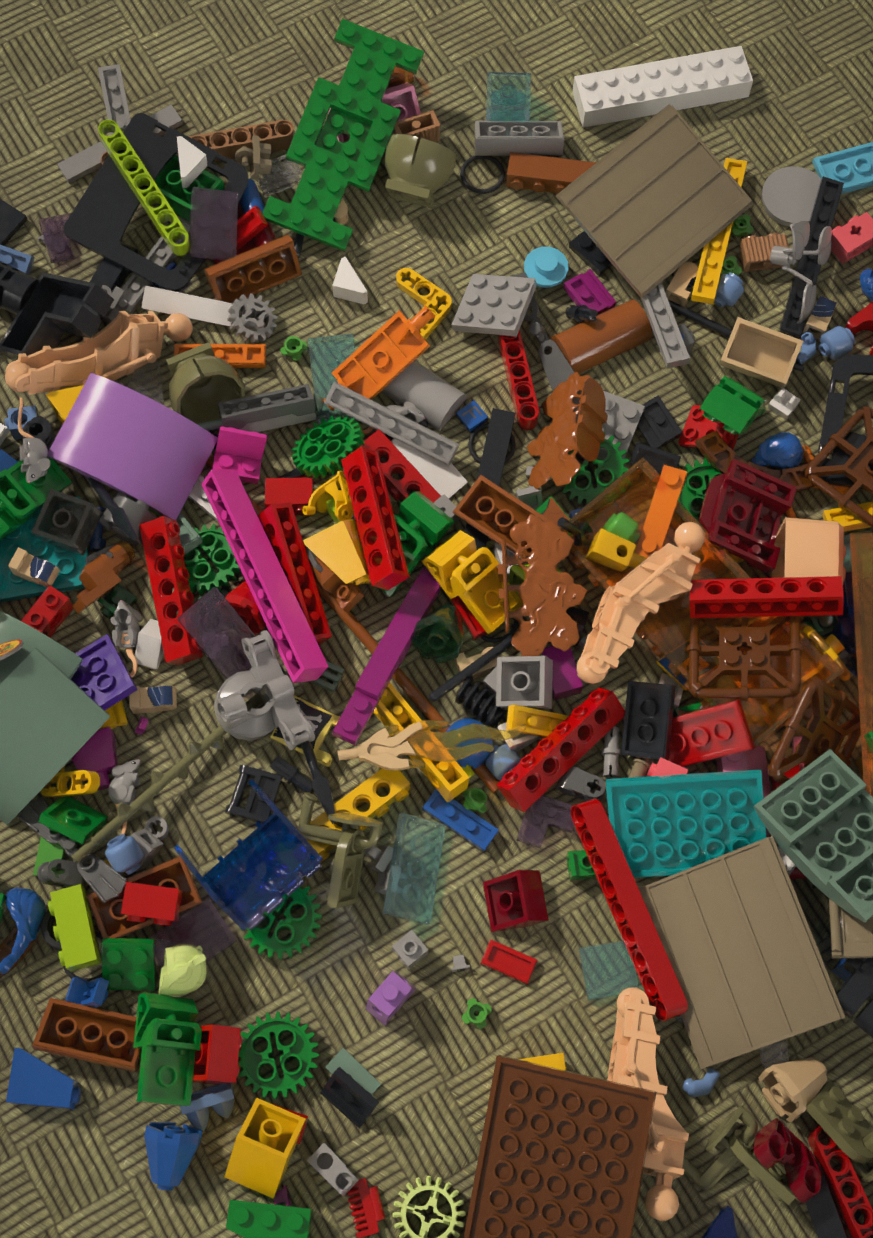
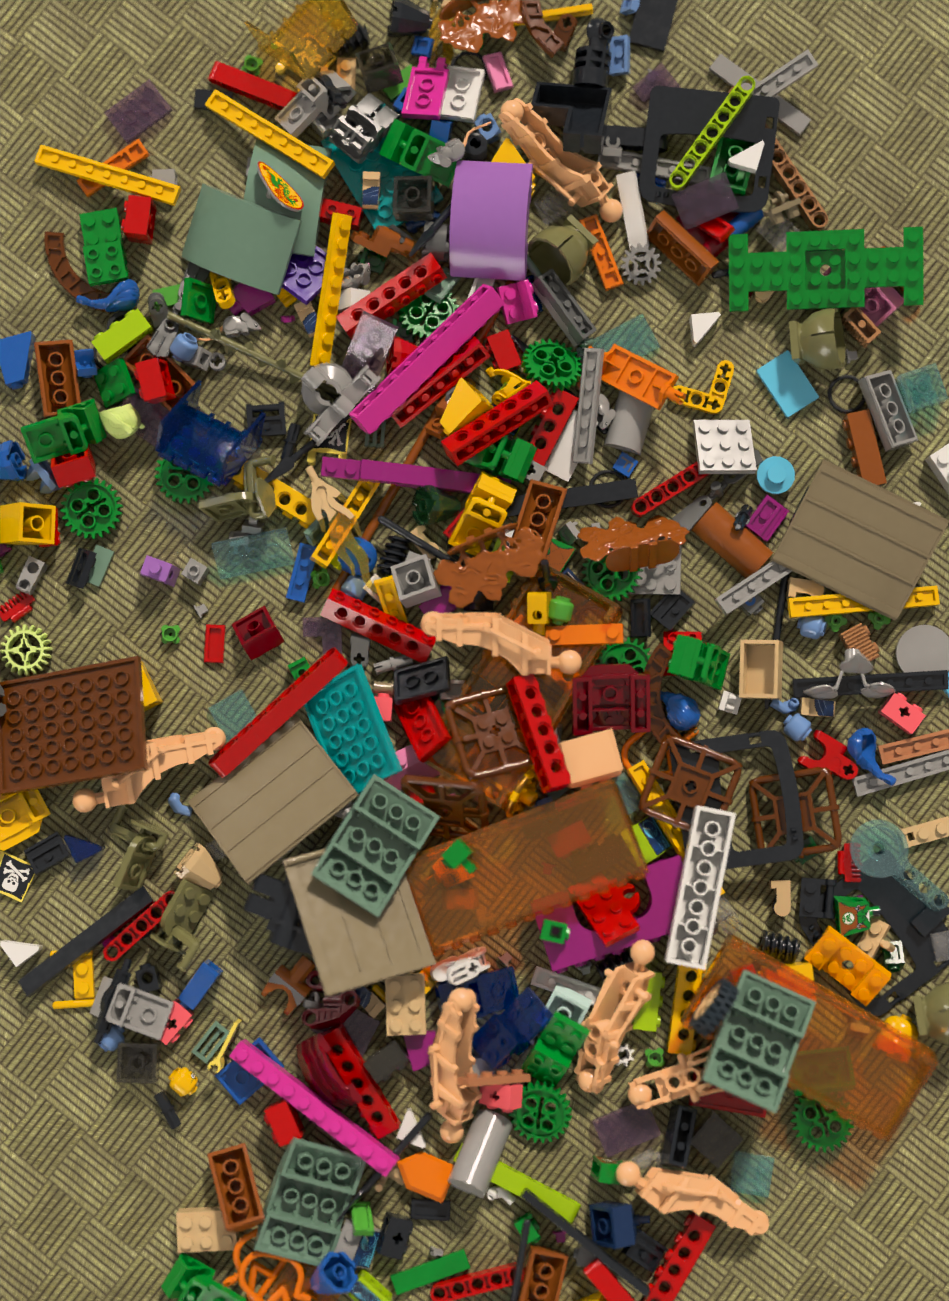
camera: 70 degrees right, 15 degrees up
(130, 655) = (331, 289): none -> yellow plate
(294, 342) = (630, 301): bright green plate -> none
(417, 780) = (313, 532): none -> sand green tile
(448, 225) = (787, 384): none -> medium azure tile
(777, 1144) = (153, 873): dark red connector -> none

